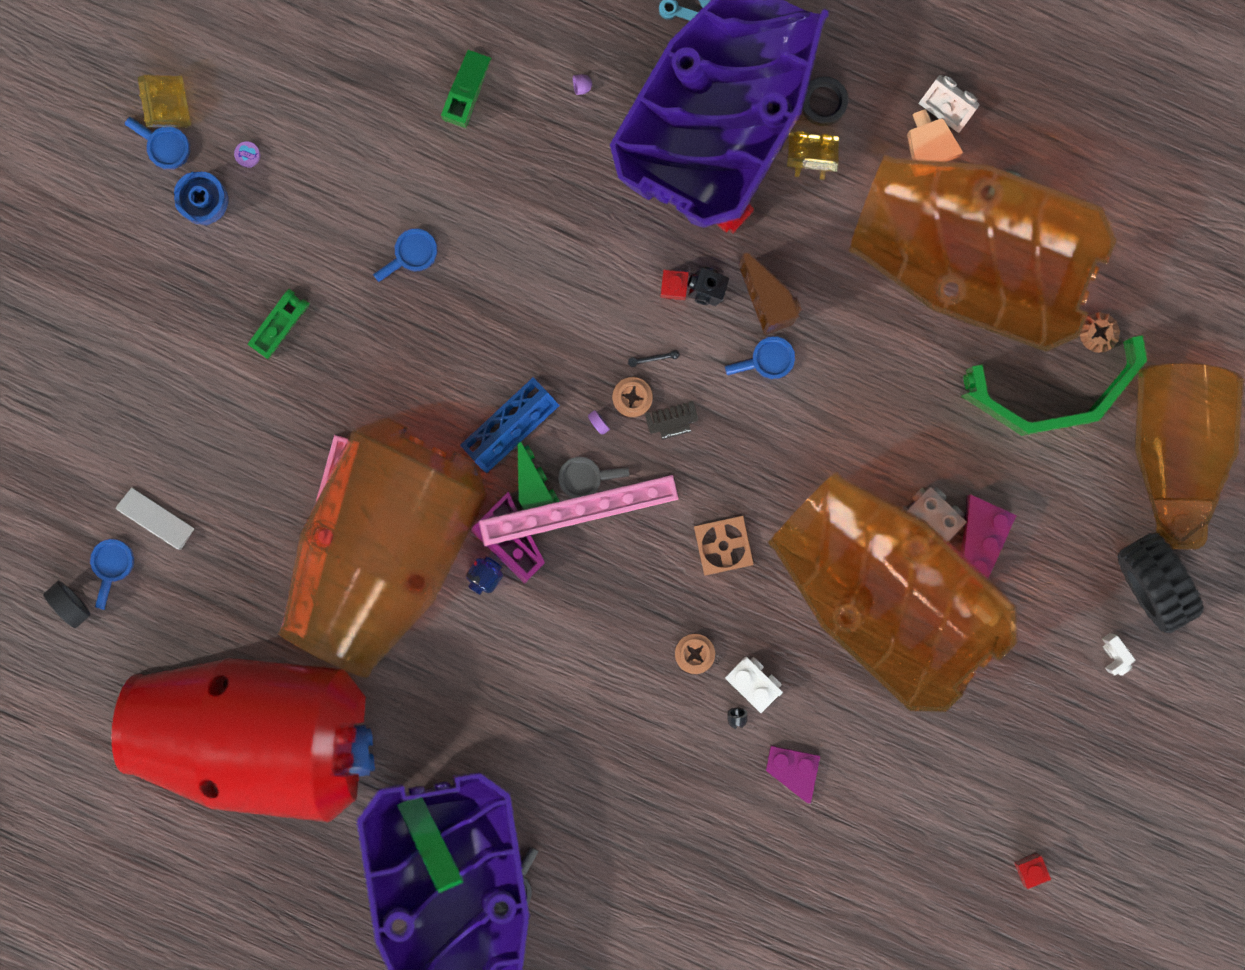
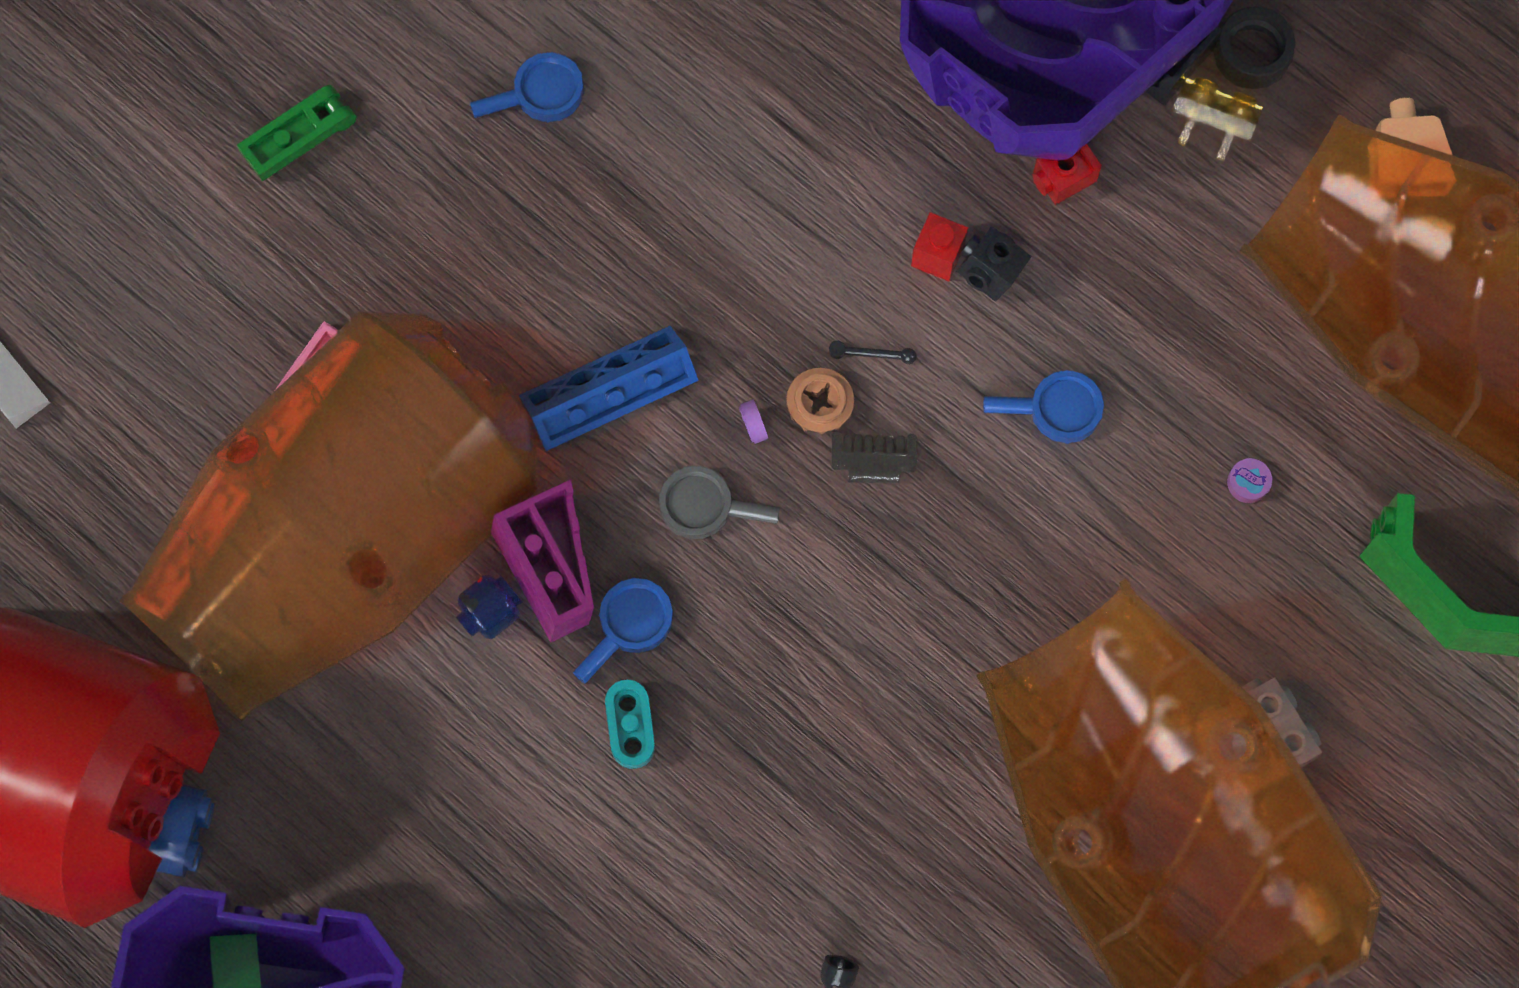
camera: 15 degrees right, 15 degrees down
(531, 481) = (610, 498): green slope -> none
(565, 555) = (633, 618): none -> blue piece
(578, 510) = (675, 544): bright pink tile -> none
(583, 616) = (629, 725): none -> teal plate
(707, 654) = (804, 822): nougat gear -> none
(745, 561) = (866, 711): nougat piece -> none
(754, 684) = (885, 923): white bracket -> none
(770, 299) = (1090, 289): reddish brown slope -> none
(888, 371) = (1249, 480): none -> medium lavender tile
(949, 102) = (1445, 94): white bracket -> none
(984, 533) = (1354, 771): magenta wedge -> none

